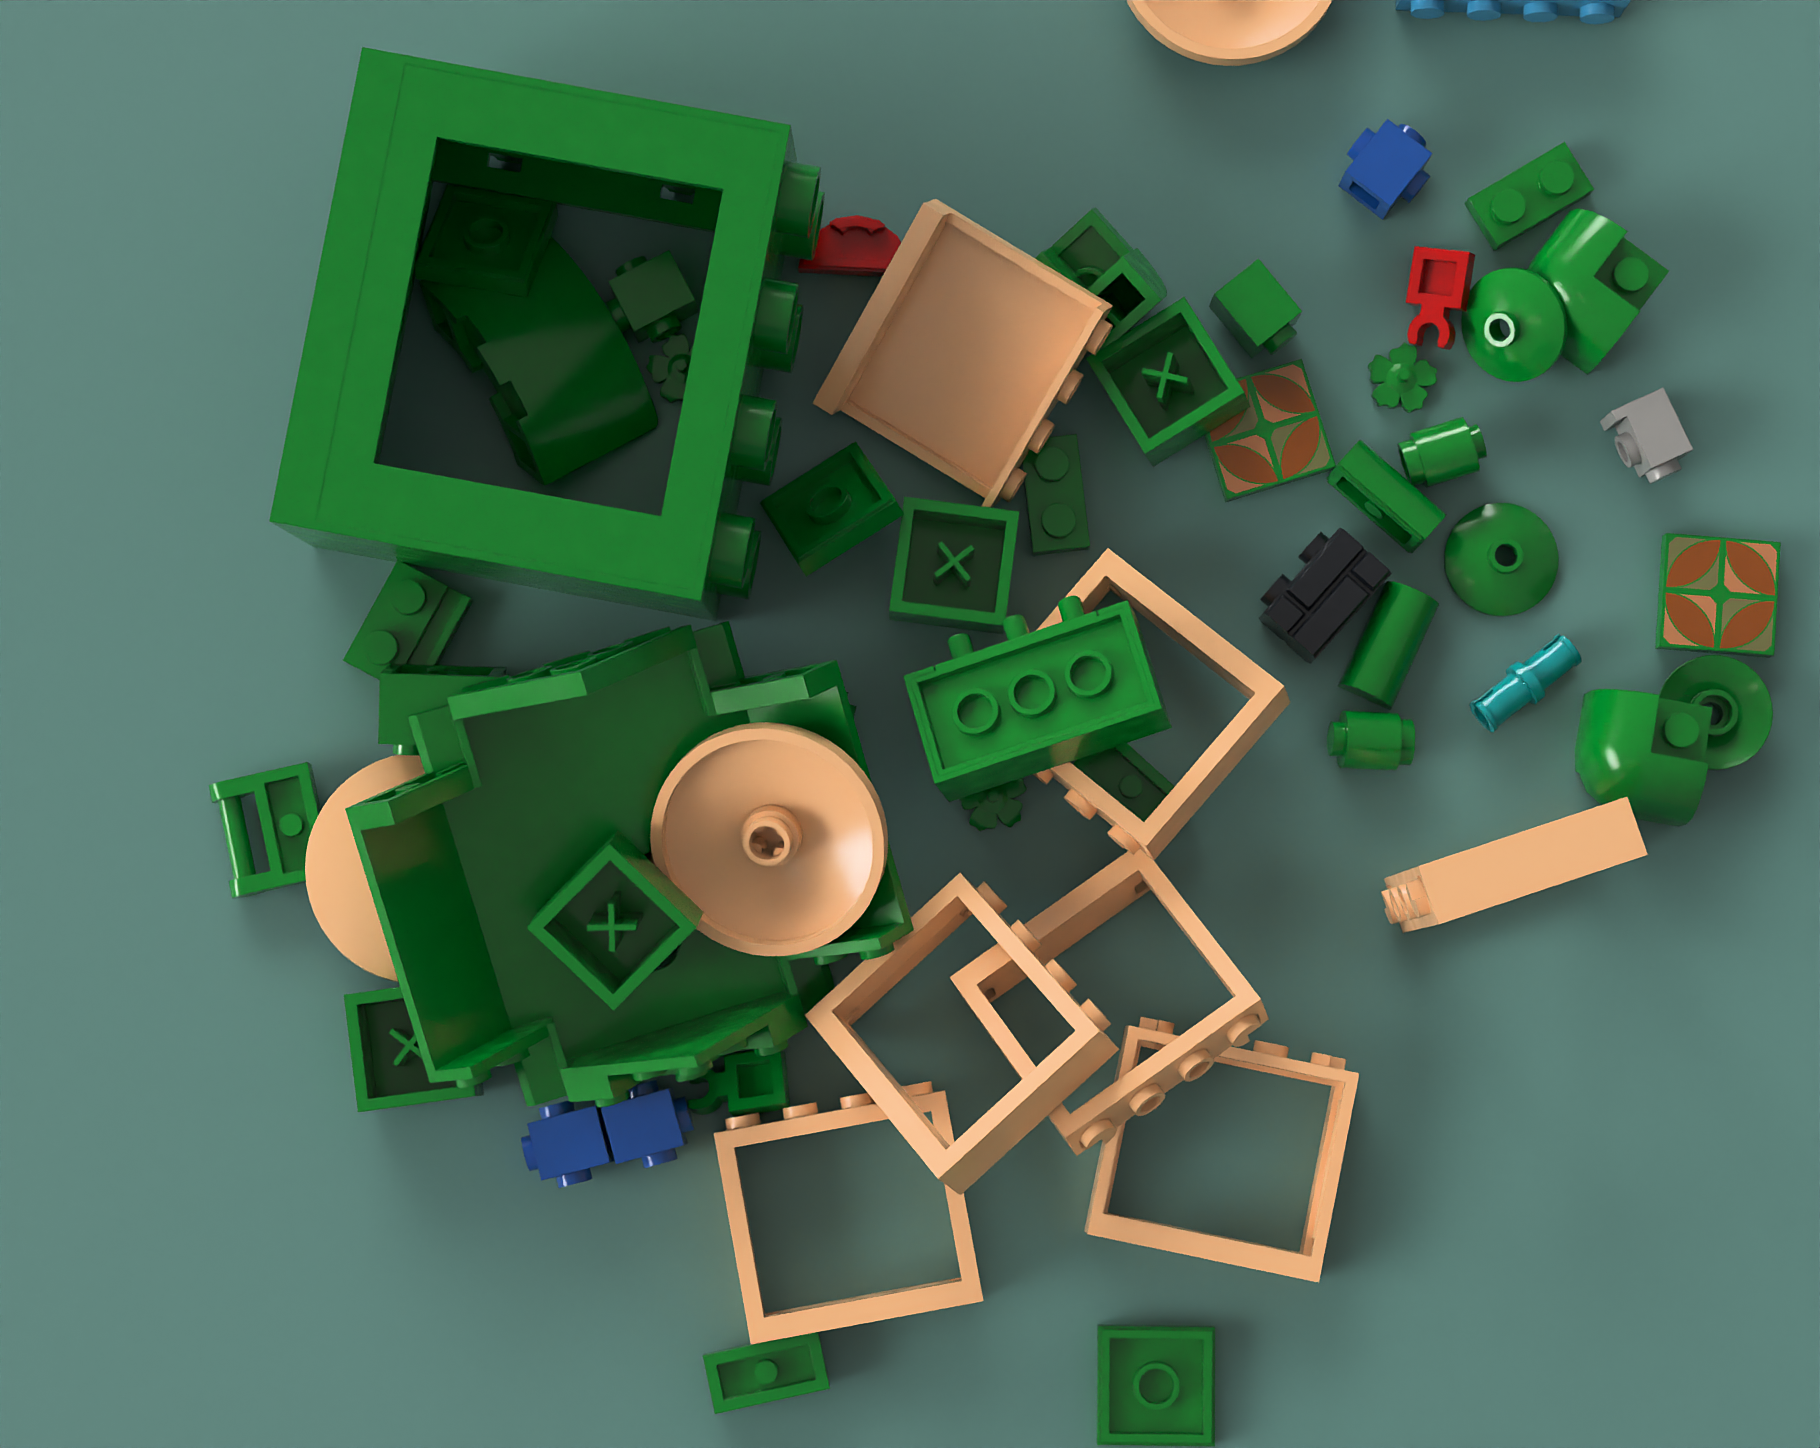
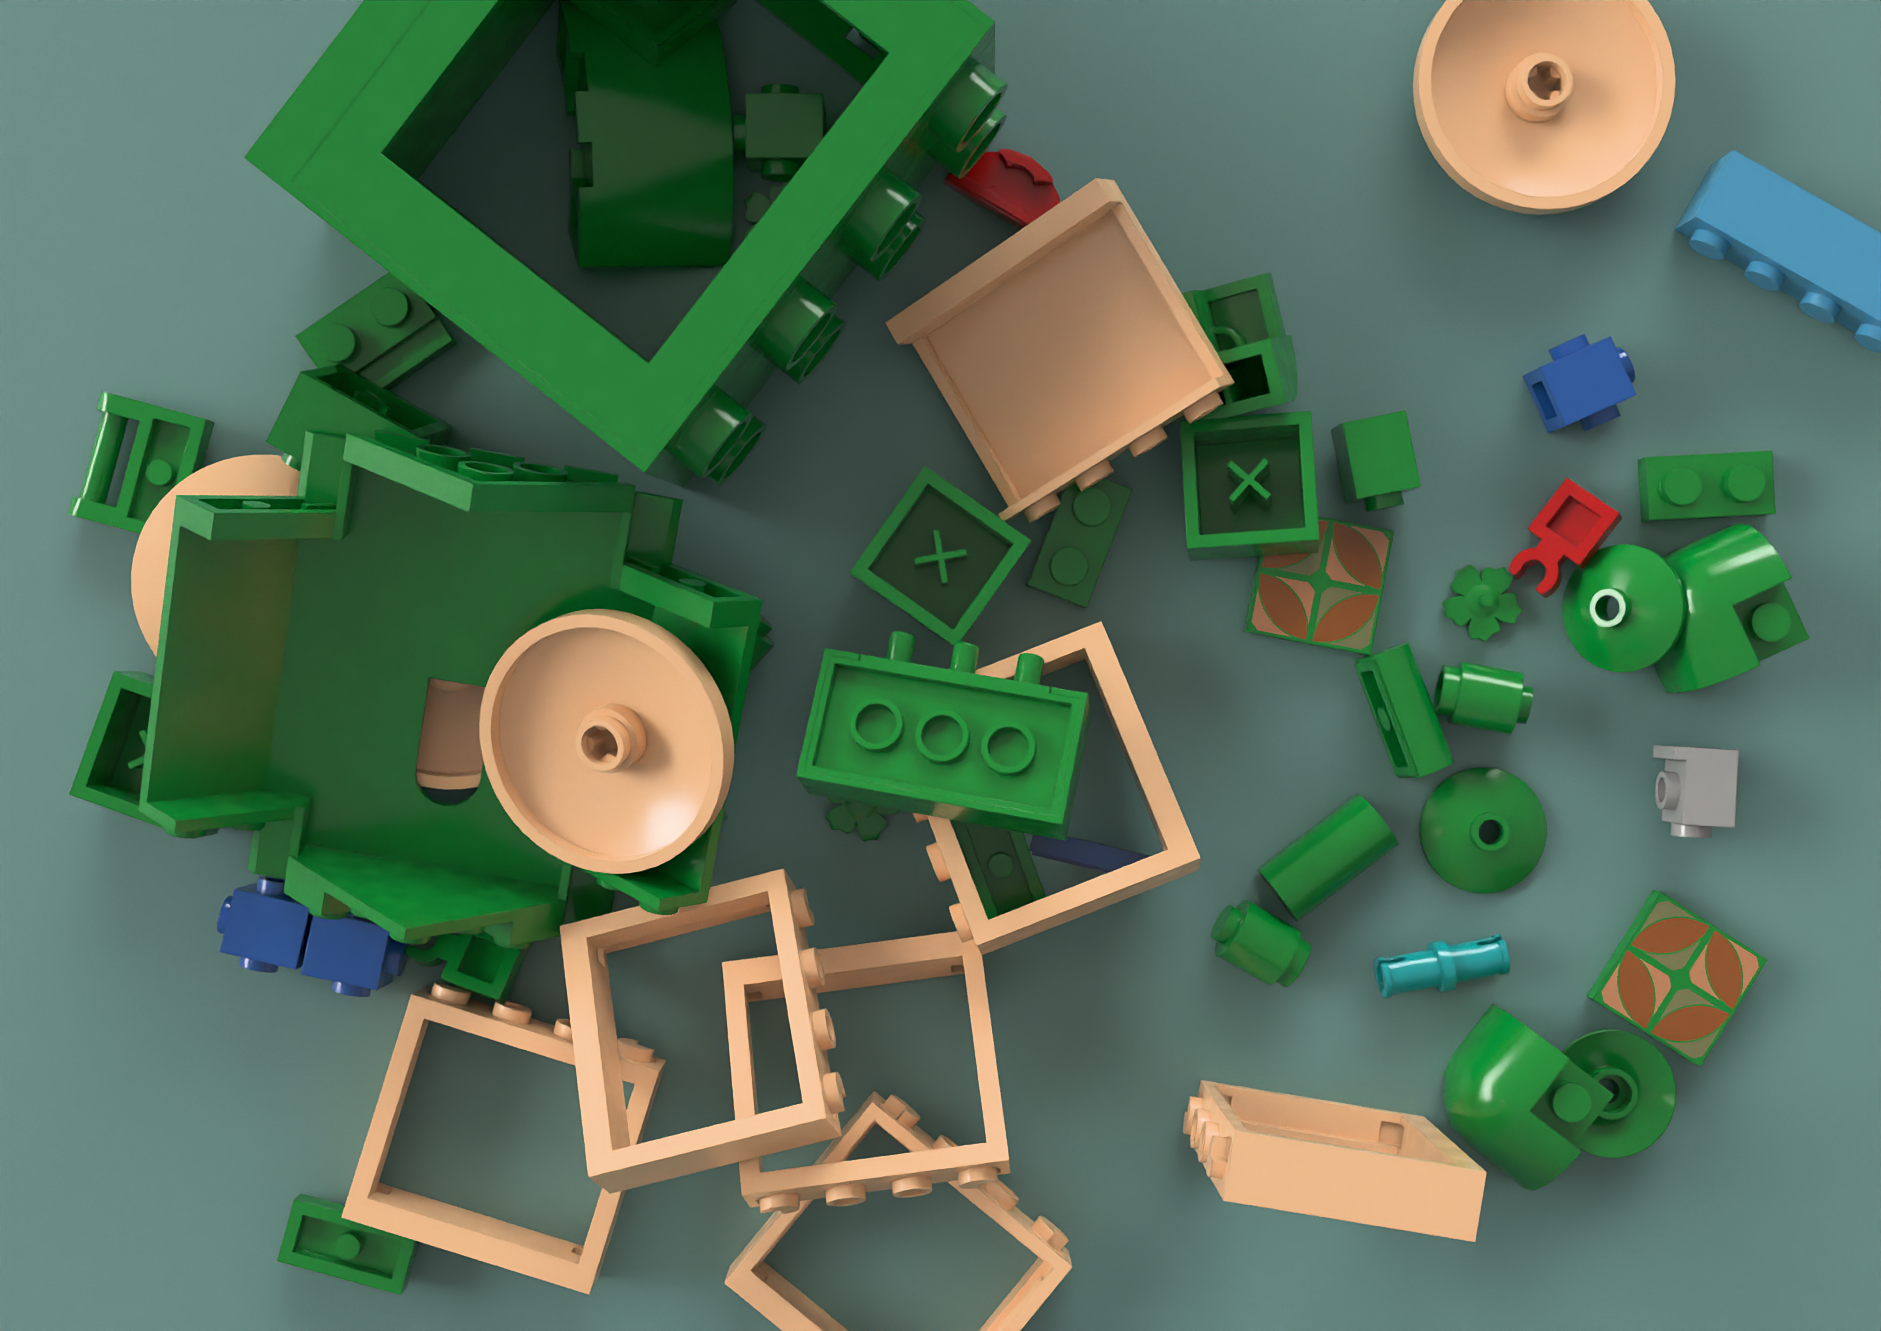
camera: 30 degrees right, 5 degrees up
(615, 920) = (408, 744): green brick -> none
(831, 508) = (848, 438): green tile -> none
(1186, 741) = (1084, 853): none -> dark blue tile
(1323, 594) = (1291, 775): black brick -> none

